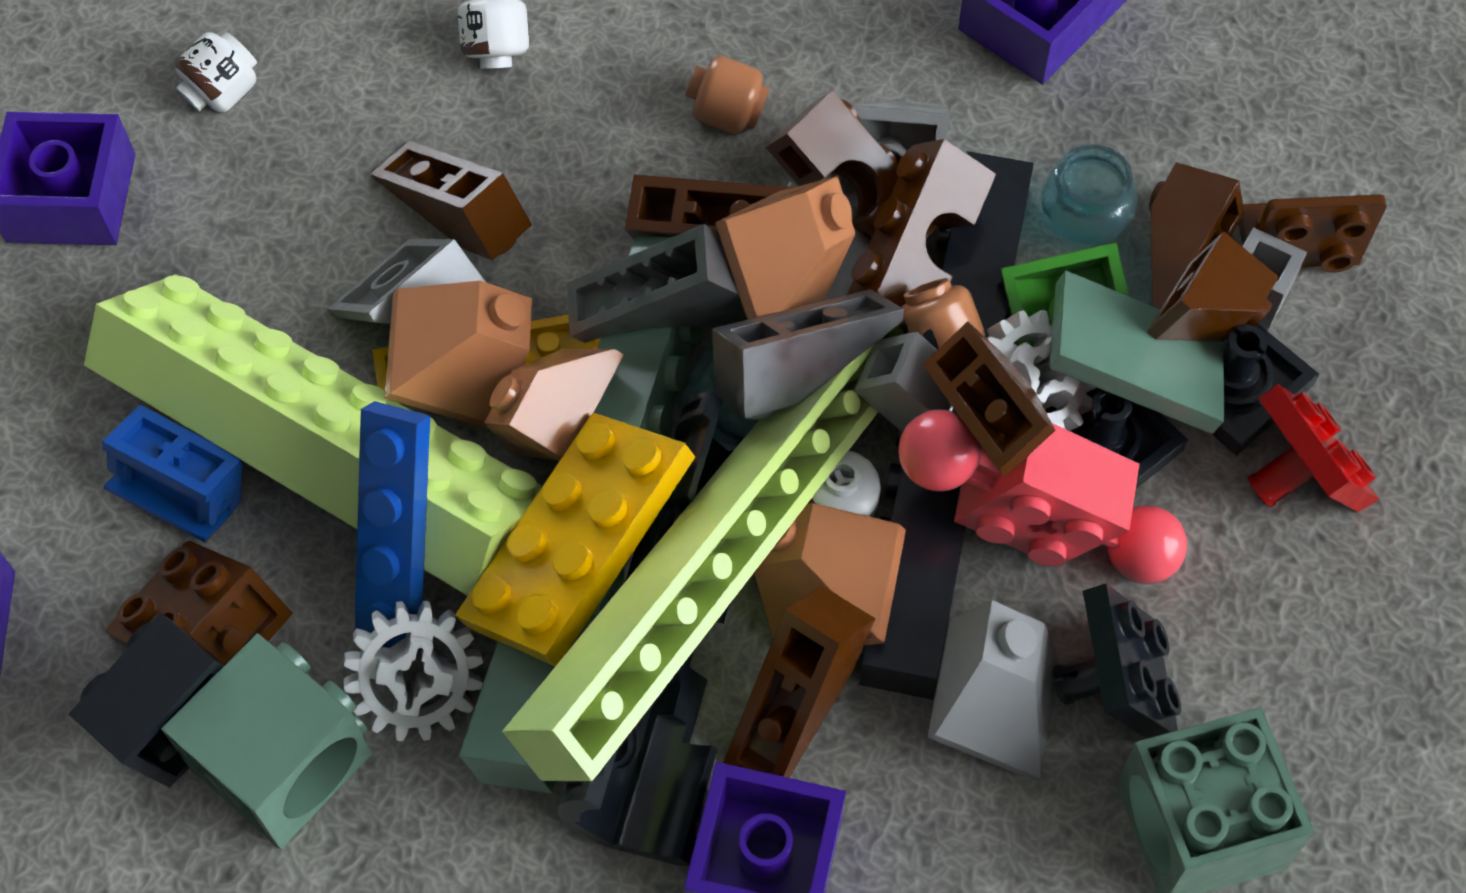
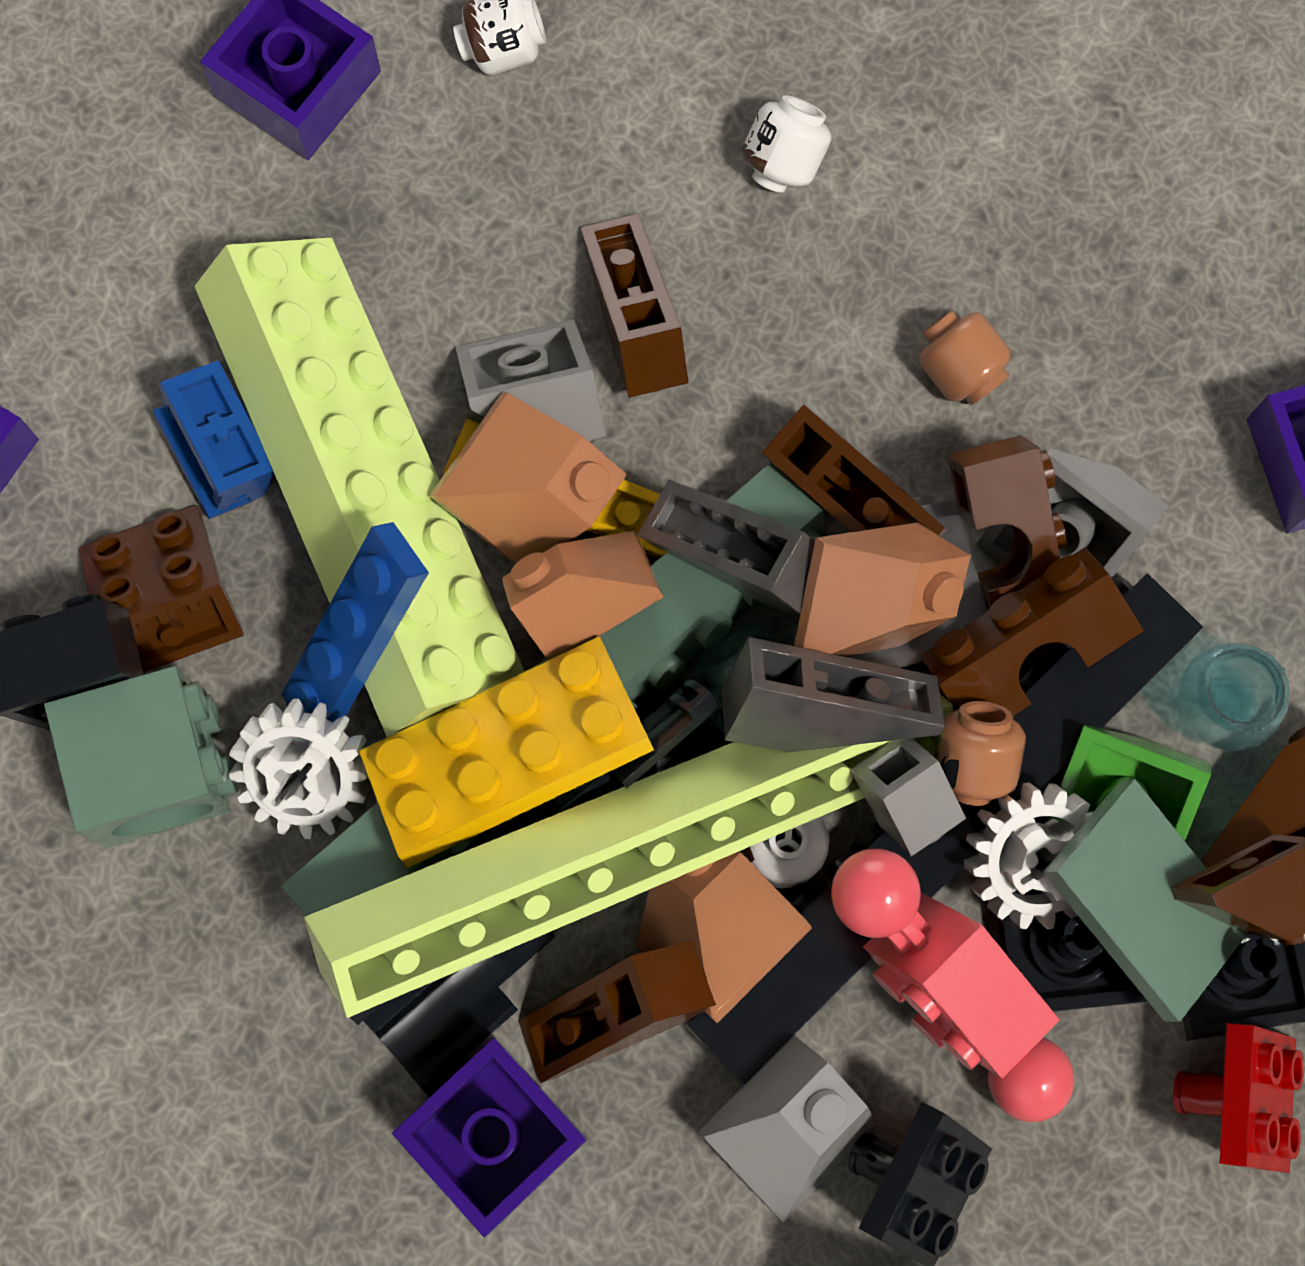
camera: 30 degrees right, 15 degrees up
(990, 397) = (952, 886): reddish brown slope -> none

